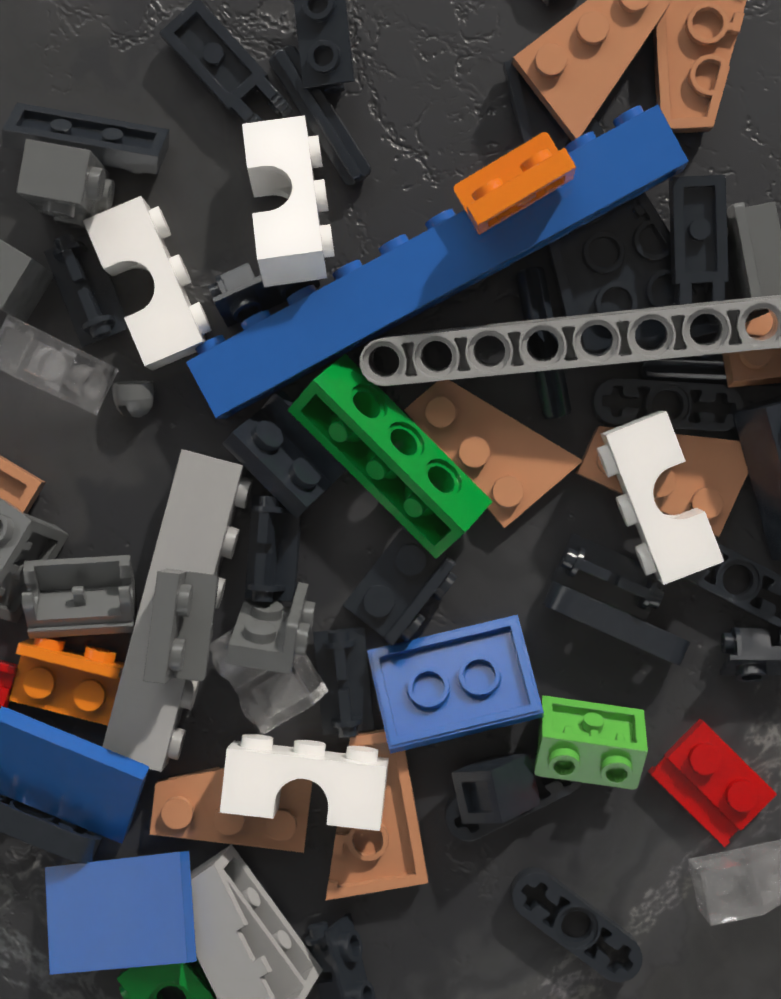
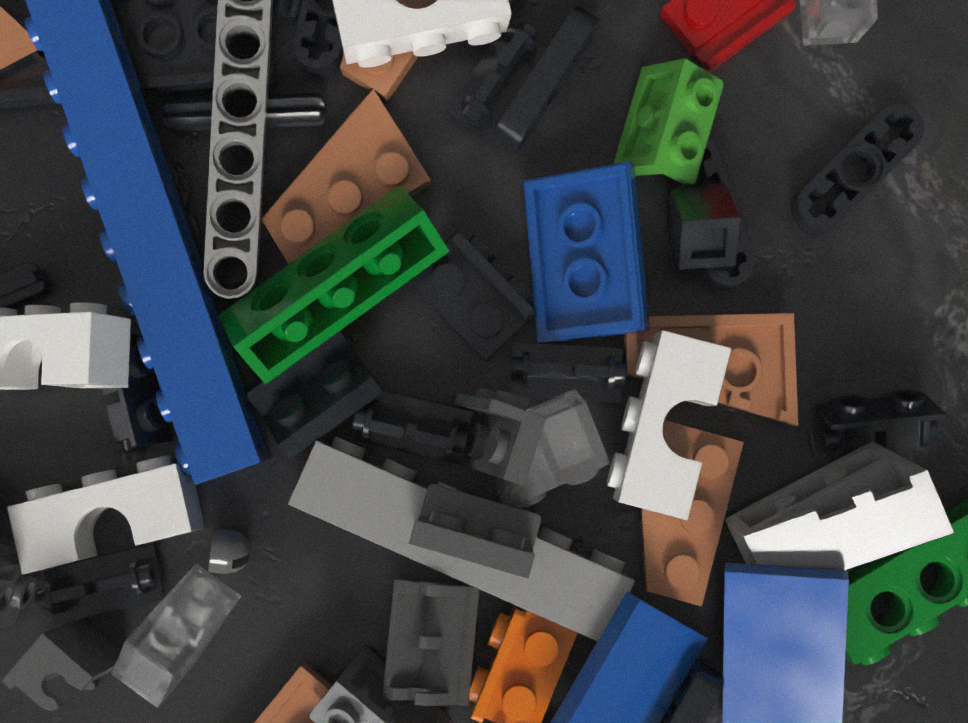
camera: 75 degrees left, 5 degrees down
(514, 181) = (56, 95): orange bracket -> none

